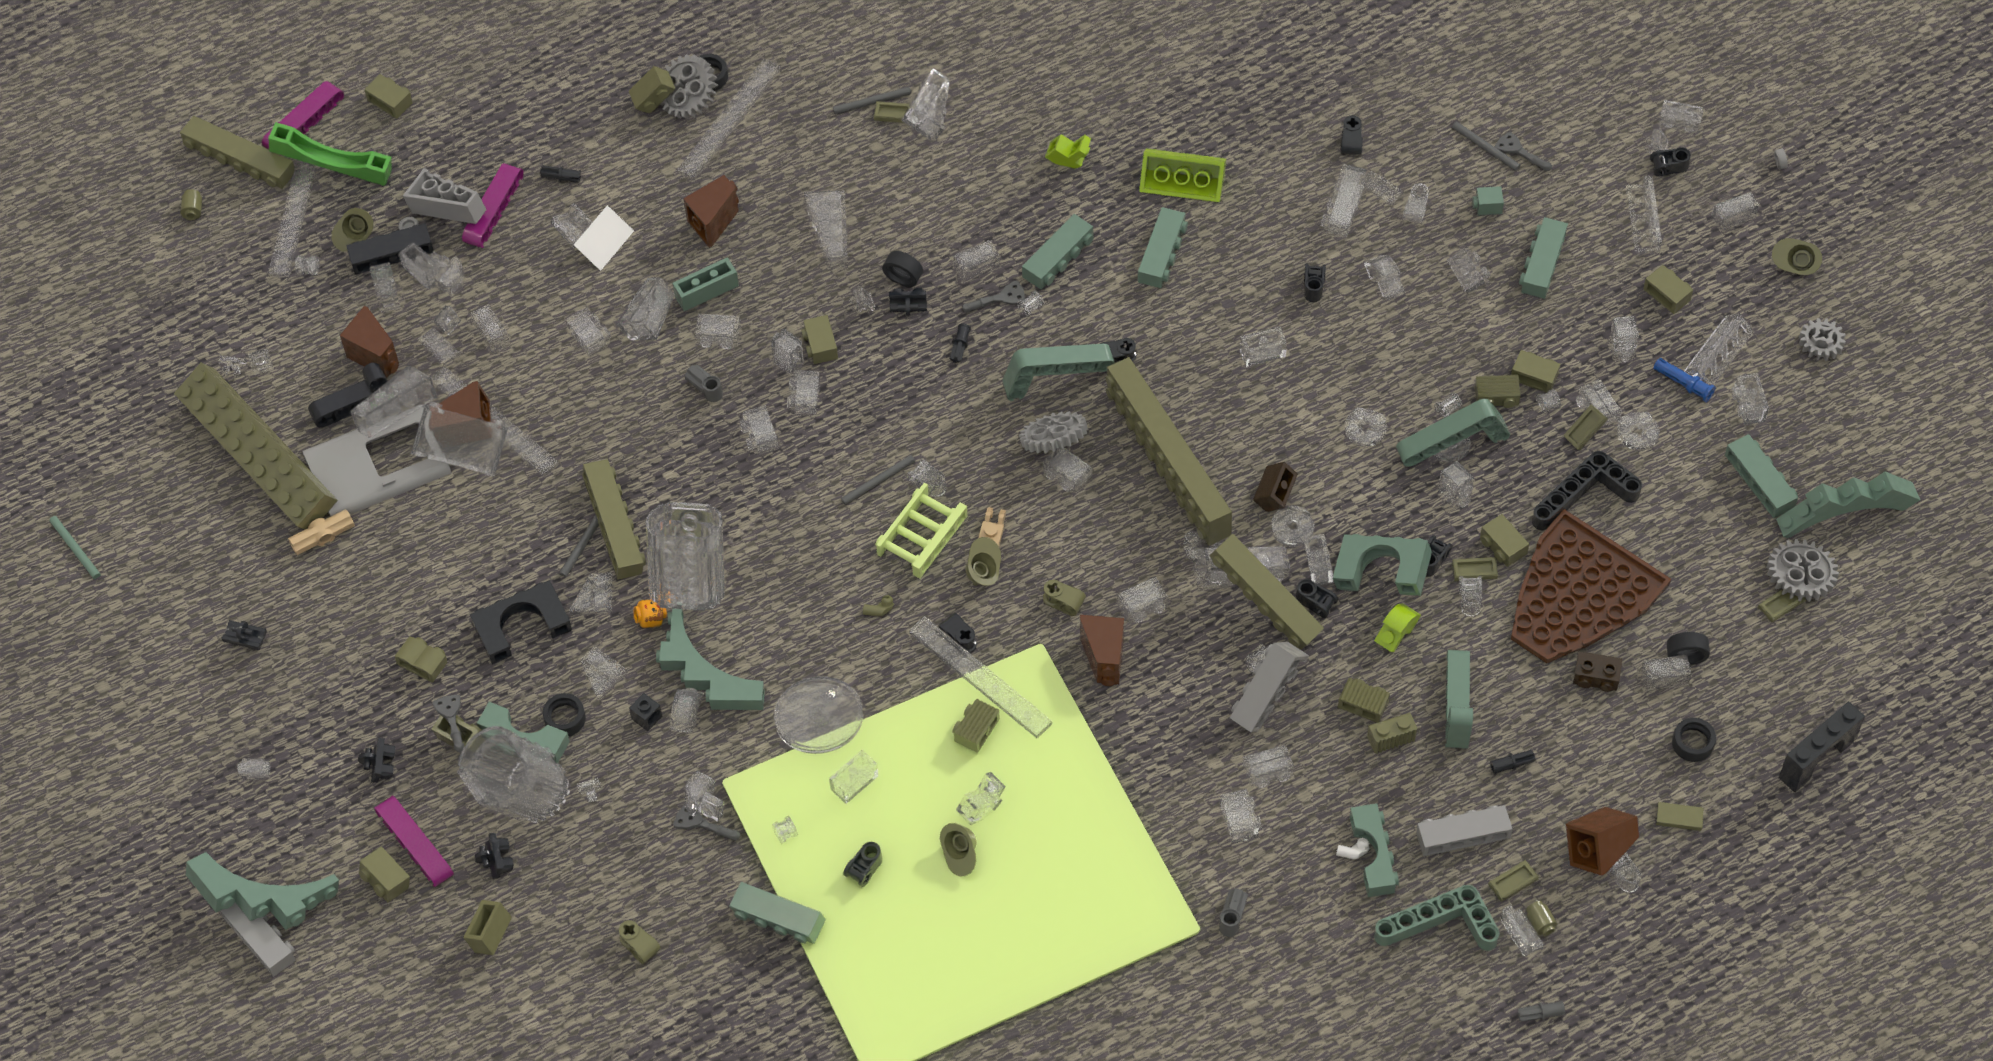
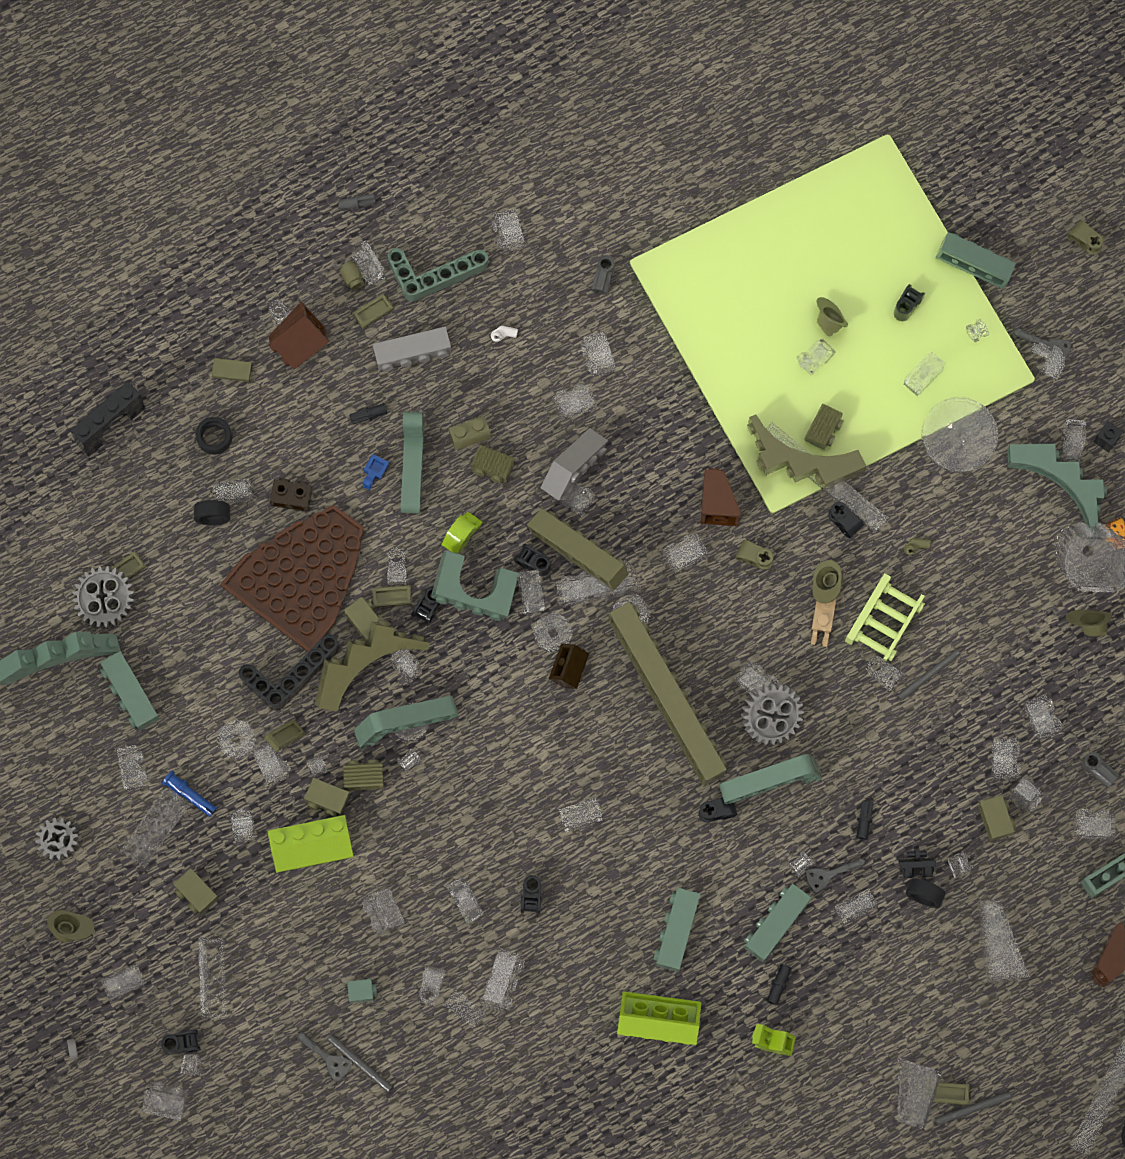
camera: 175 degrees right, 15 degrees up
(1006, 677) = (800, 465): none -> olive arch
(1059, 201) = (779, 984): none -> black pin
(1350, 967) = (508, 230): none -> clear brick
(1352, 136) = (493, 1063): black piece -> none
(1363, 417) = (495, 732): clear plate -> none
(1379, 875) = (492, 351): sand green arch -> none
(1501, 699) = (374, 469): none -> blue plate
(1509, 494) = (338, 675): none -> olive arch
(1544, 257) = (311, 925): sand green brick -> none
(1551, 333) = (310, 843): none -> lime slope

